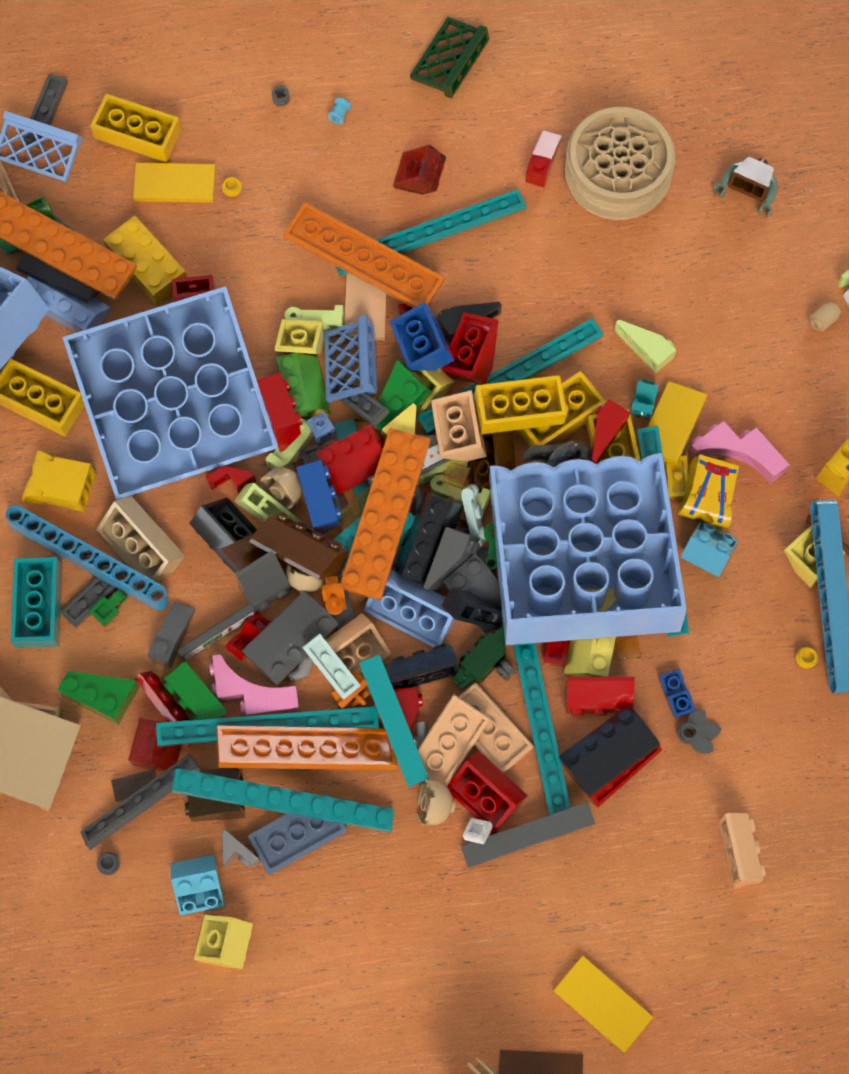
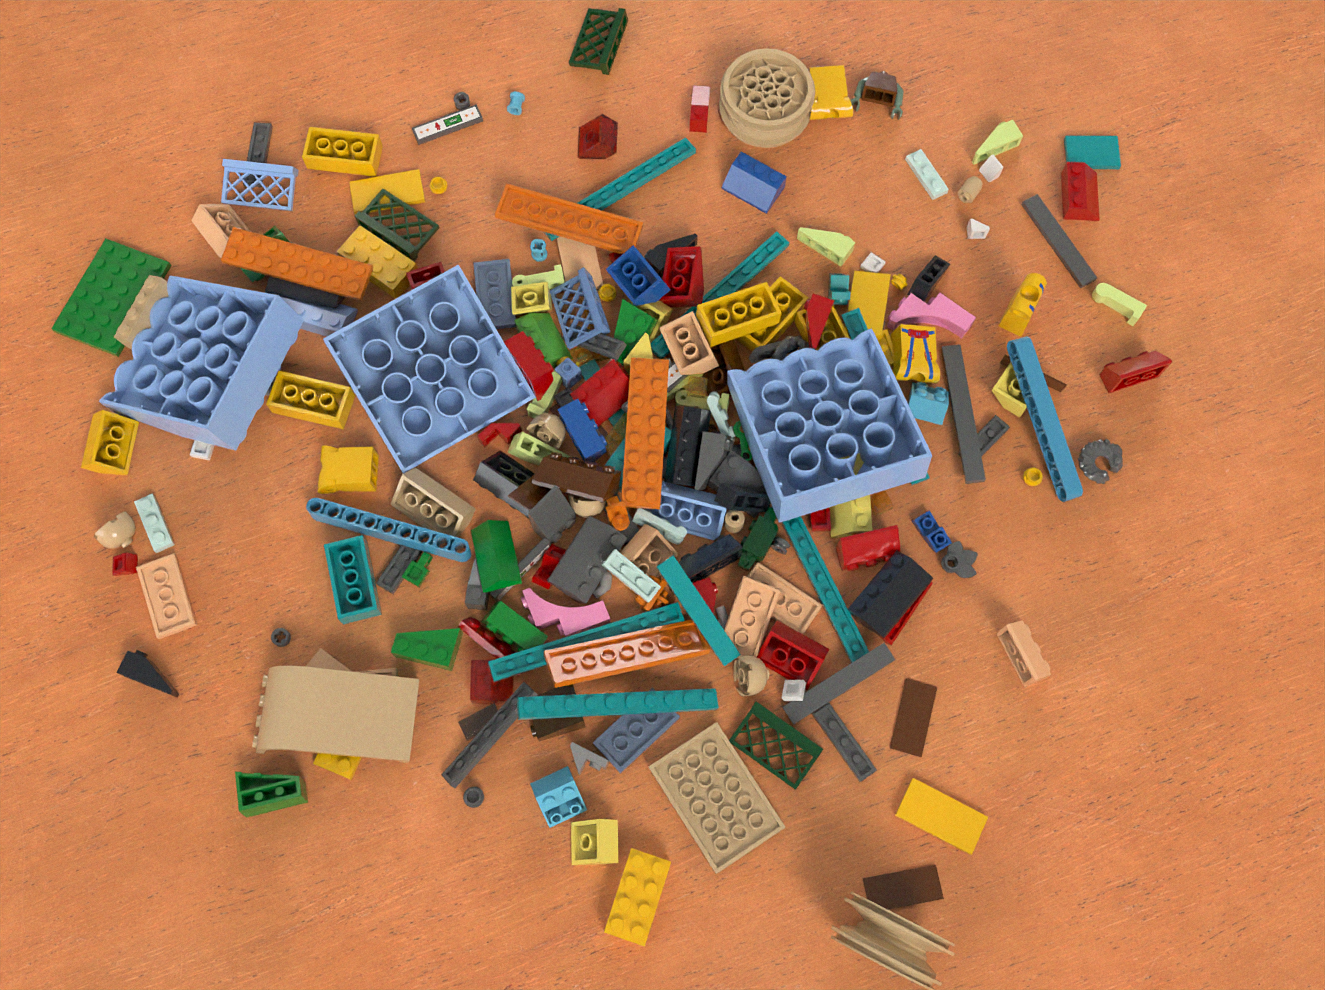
camera: 15 degrees left, 0 degrees up
(161, 228) = (390, 237): none -> dark green fence
(193, 611) = (495, 555): none -> green slope
(254, 1010) = (637, 897): none -> yellow brick
(258, 119) = (447, 124): none -> tile
(262, 320) = (493, 290): none -> sand blue plate
(326, 279) = (538, 250): none -> medium azure bush
(339, 412) = (581, 356): none -> clear yellow plate
(364, 926) = (716, 797): none -> tan plate
(380, 619) = (668, 531): none -> light aqua plate
(386, 347) = (607, 292): none -> yellow plate
(454, 868) = (788, 732): none -> dark green fence
(460, 638) = (734, 526): none -> tan brick
(518, 900) = (844, 742): none -> dark grey tile
(581, 257) = (754, 182): none -> slope
(601, 891) = (913, 718): none -> reddish brown piece
(691, 378) = (872, 263): none -> white tile
(692, 171) = (830, 93): none -> yellow piece
(715, 404) = (899, 281): none -> yellow plate
(746, 570) = (963, 414): none -> dark grey tile
(750, 408) = (929, 278): none -> black slope
(763, 604) = (991, 434): none -> dark grey tile
(781, 288) = (926, 174): none -> light aqua plate
(820, 364) = (977, 230): none -> white slope

